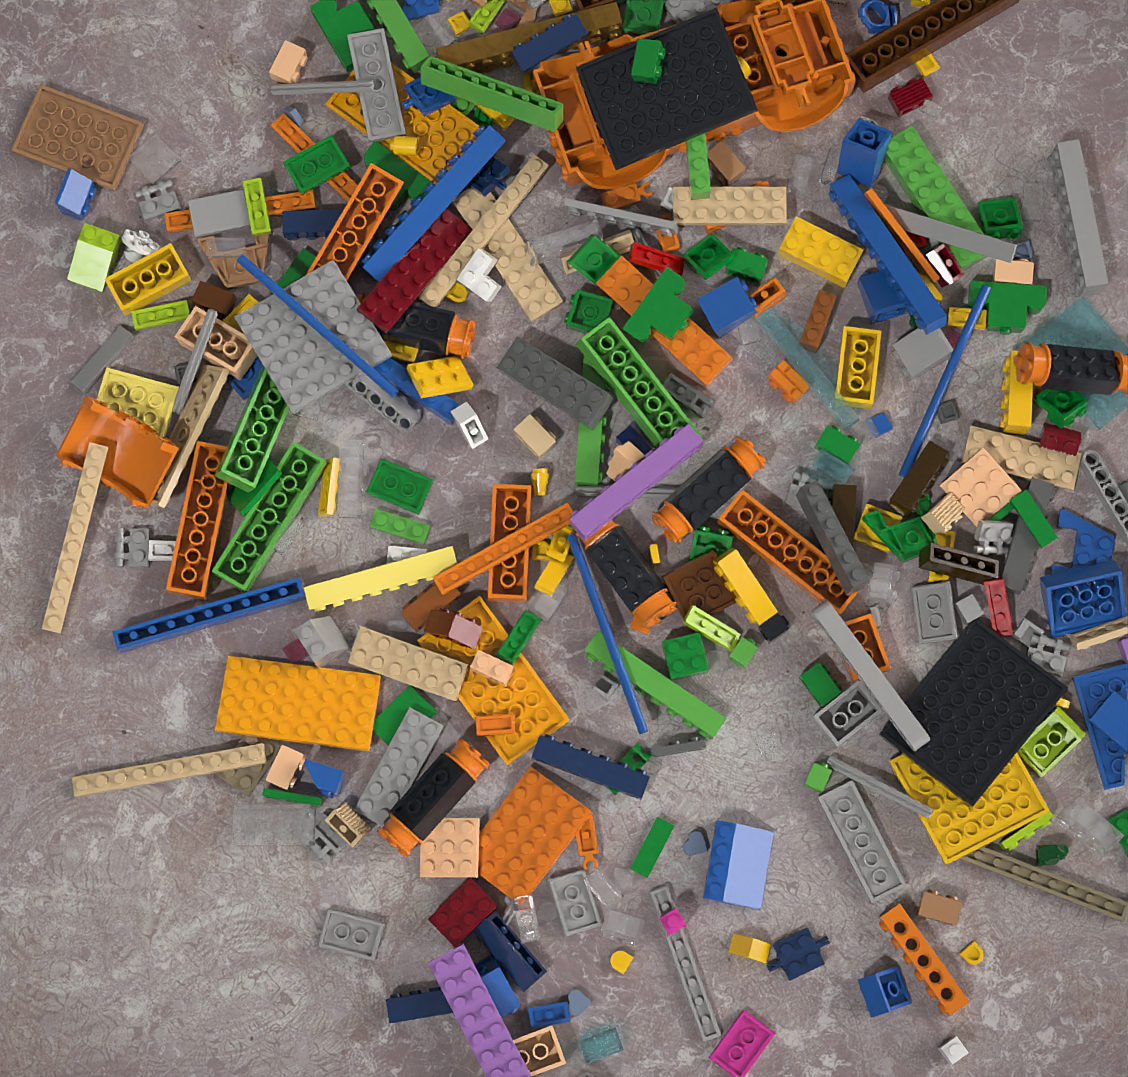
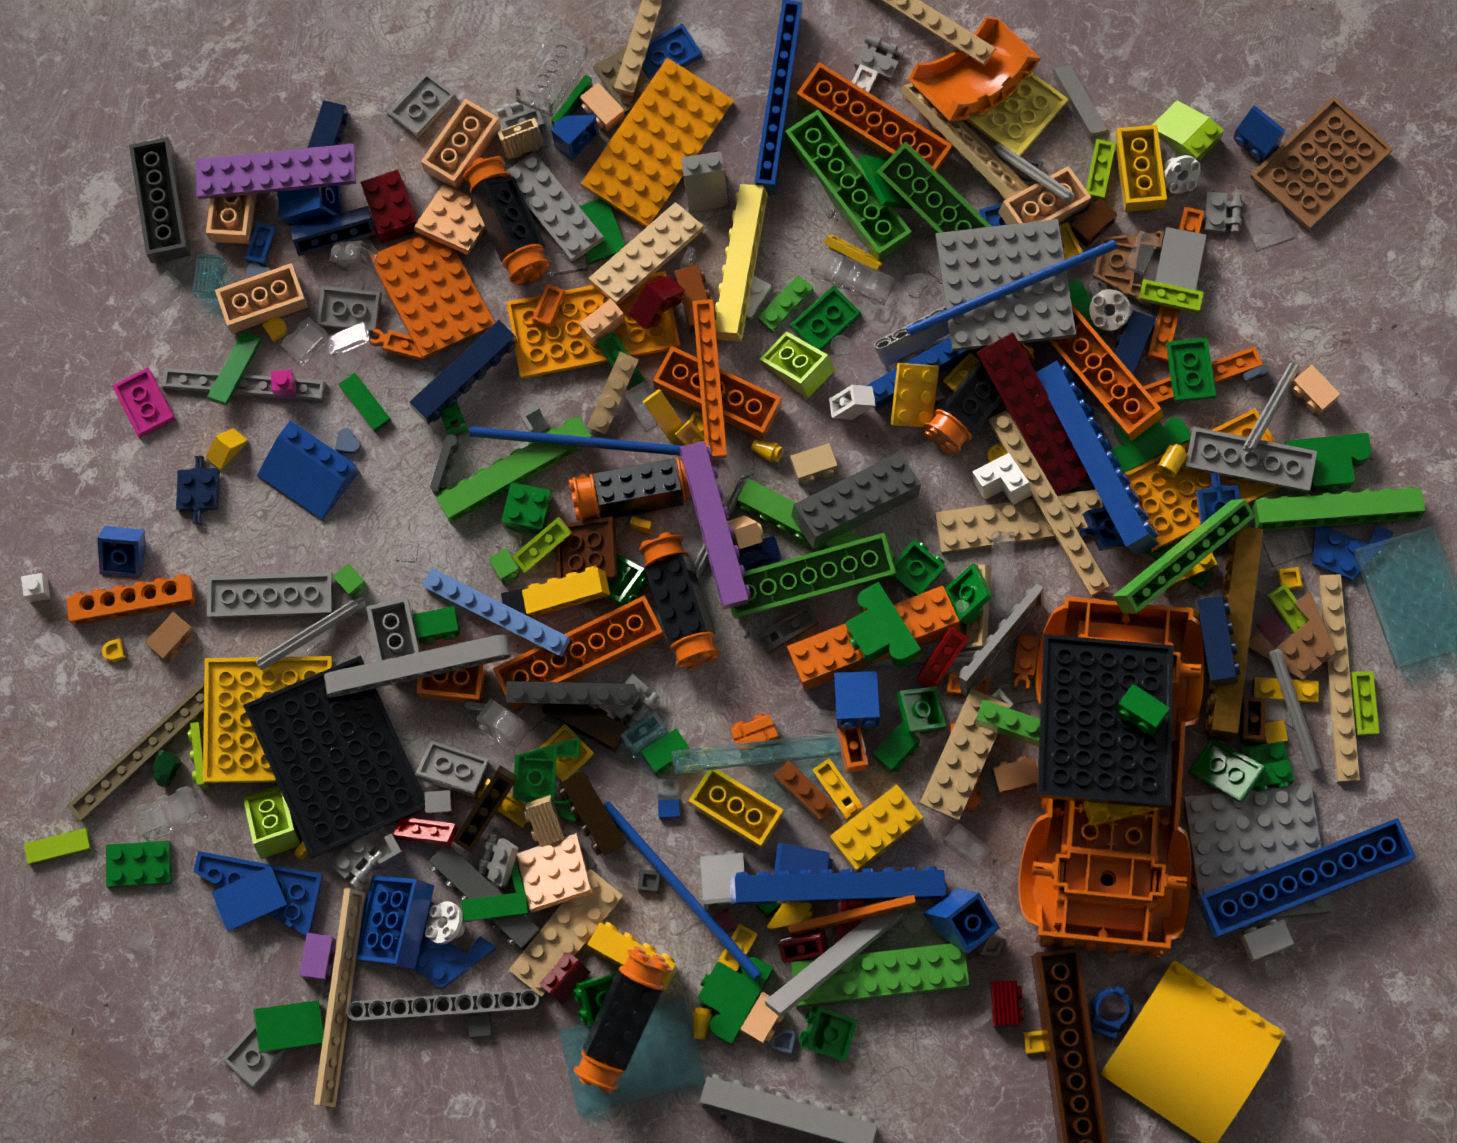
camera: 120 degrees right, 5 degrees down
(199, 733) = (673, 44): none -> blue tile
(291, 251) = (1109, 309): none -> white plate
(377, 876) = (460, 143): none -> light nougat brick
(451, 490) = (798, 364): none -> lime slope
(549, 632) = (612, 393): none -> tan plate
(601, 984) = (261, 298): none -> light nougat brick
(675, 976) = (234, 368): none -> green tile
(789, 636) = (497, 612): none -> medium blue plate
(800, 299) = (836, 787): none -> yellow plate
(1039, 319) = (701, 1022): none -> yellow cone
(1065, 554) = (444, 923): none -> white plate

